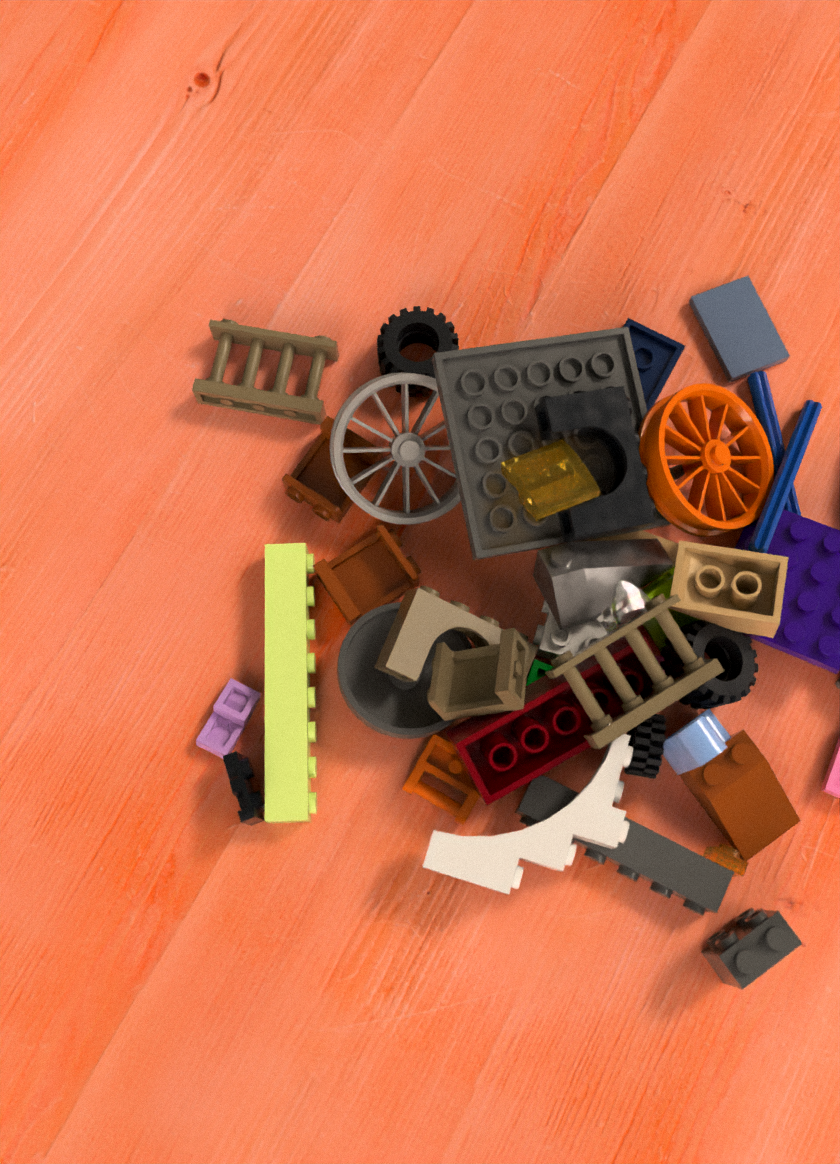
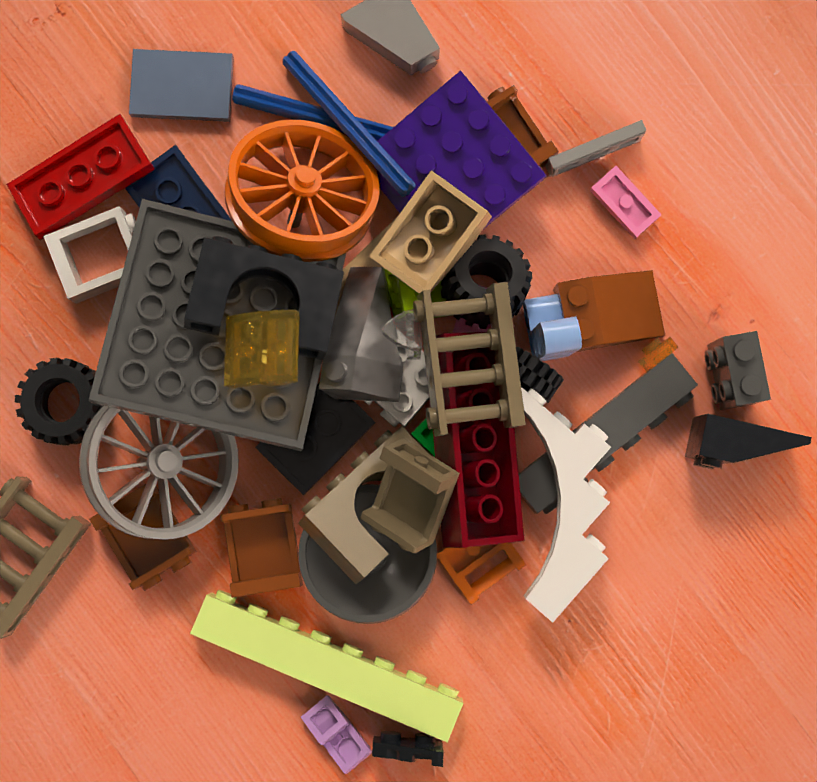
camera: 65 degrees left, 10 degrees up
(493, 584) = (330, 434): none -> black plate
(549, 289) = (65, 265): none -> white window
(617, 281) = (80, 177): none -> red plate
(679, 970) = (724, 440): none -> black slope

